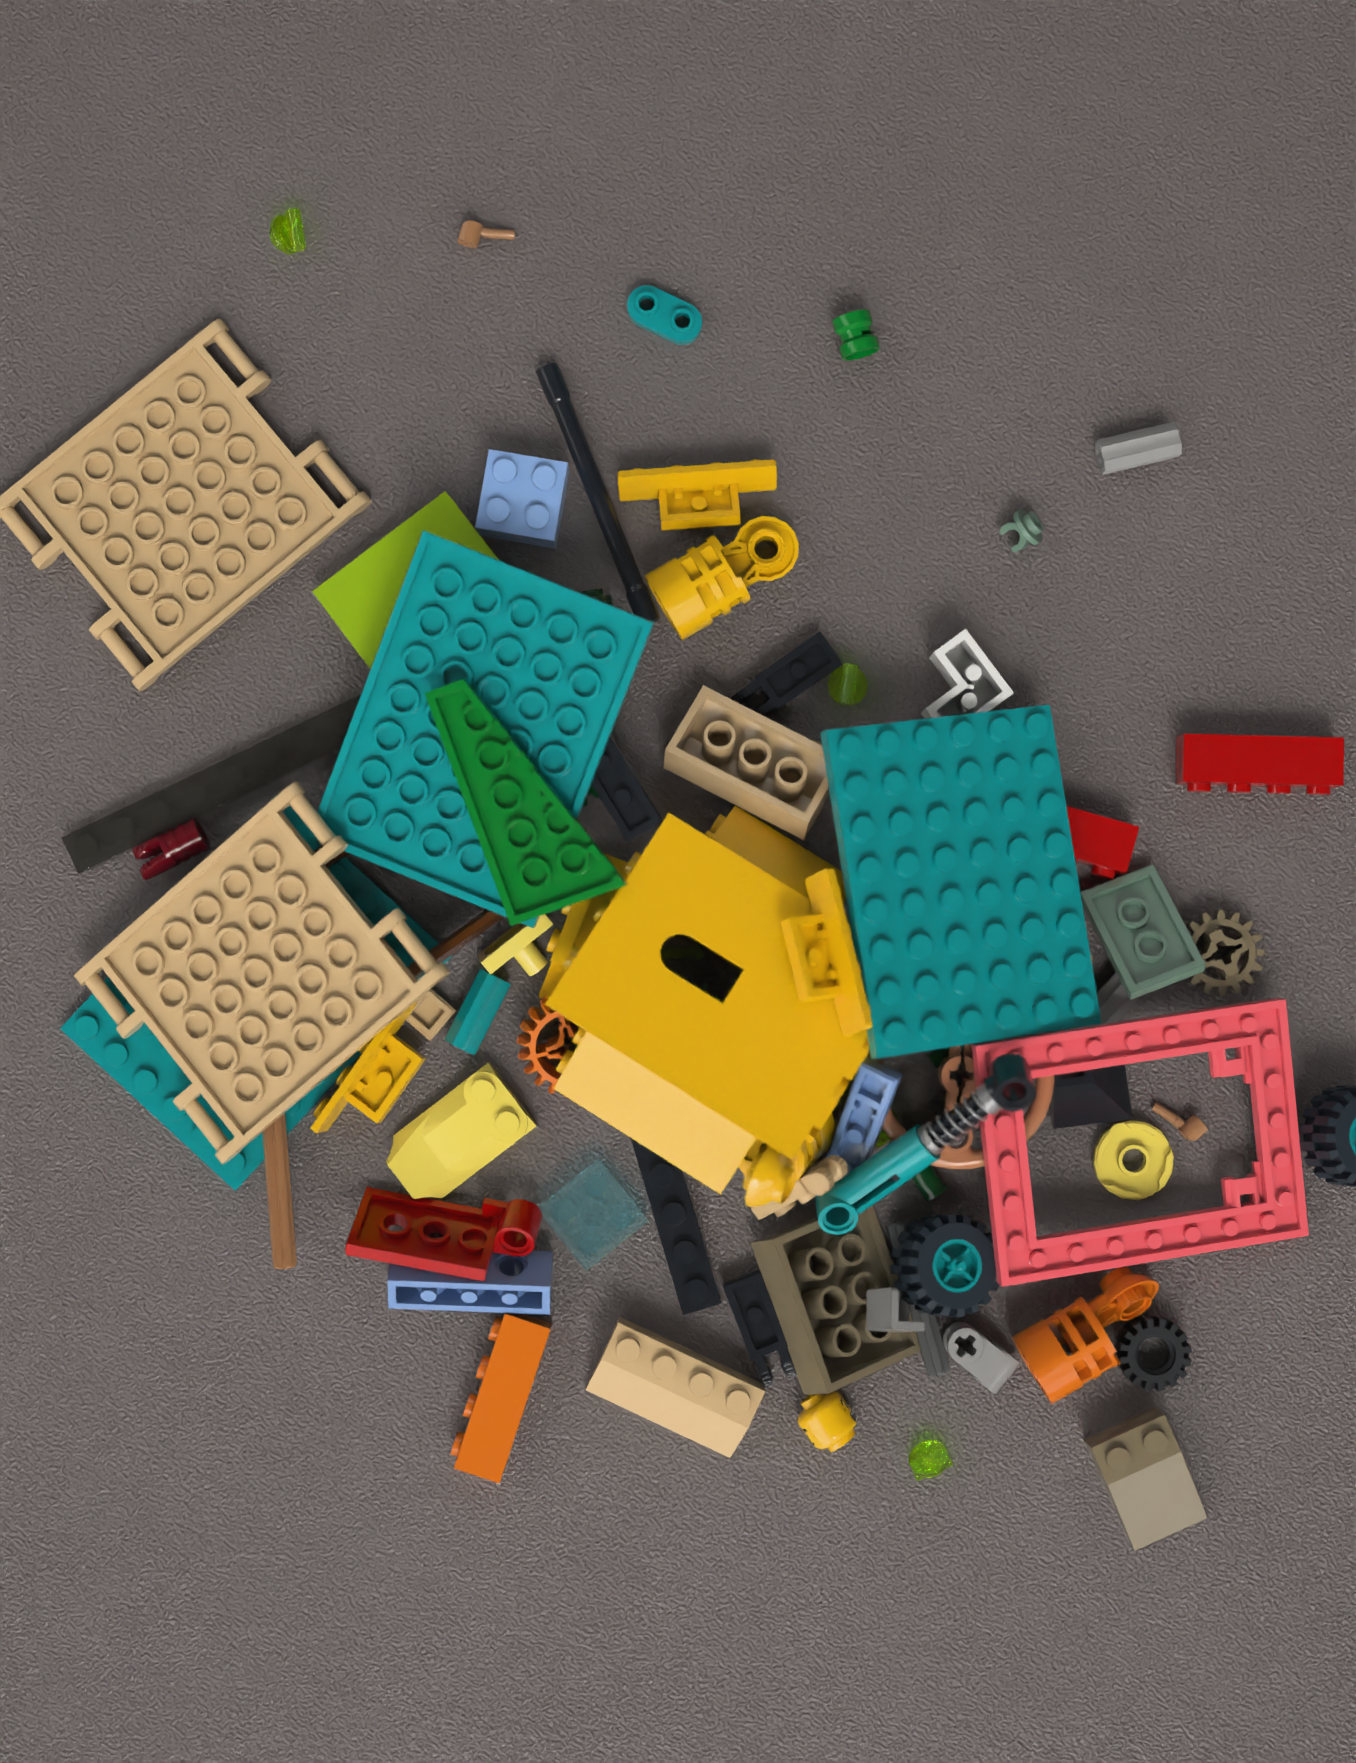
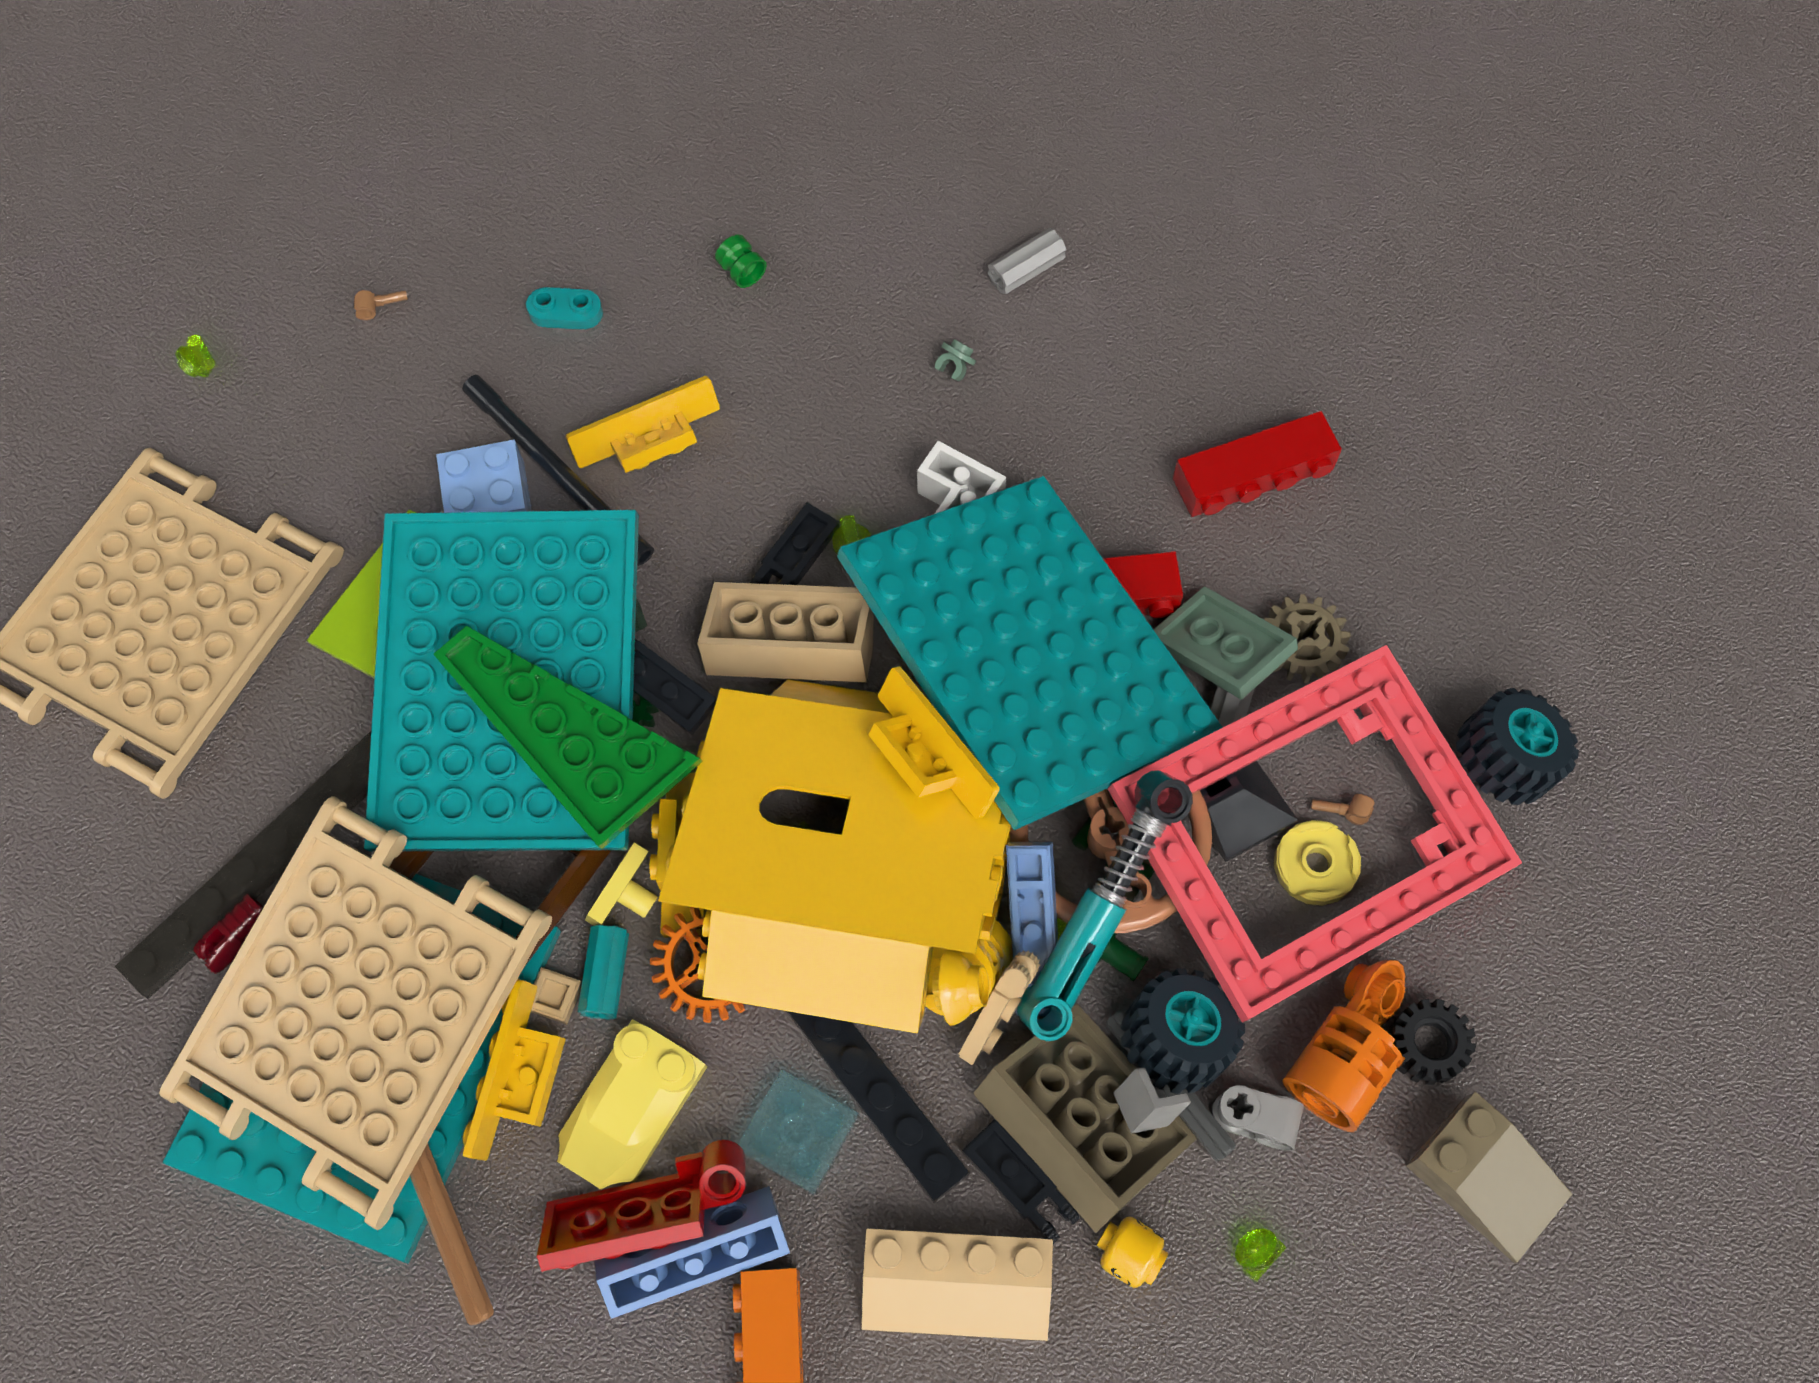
camera: 20 degrees left, 20 degrees down
(717, 577) = (690, 490): yellow cylinder -> none

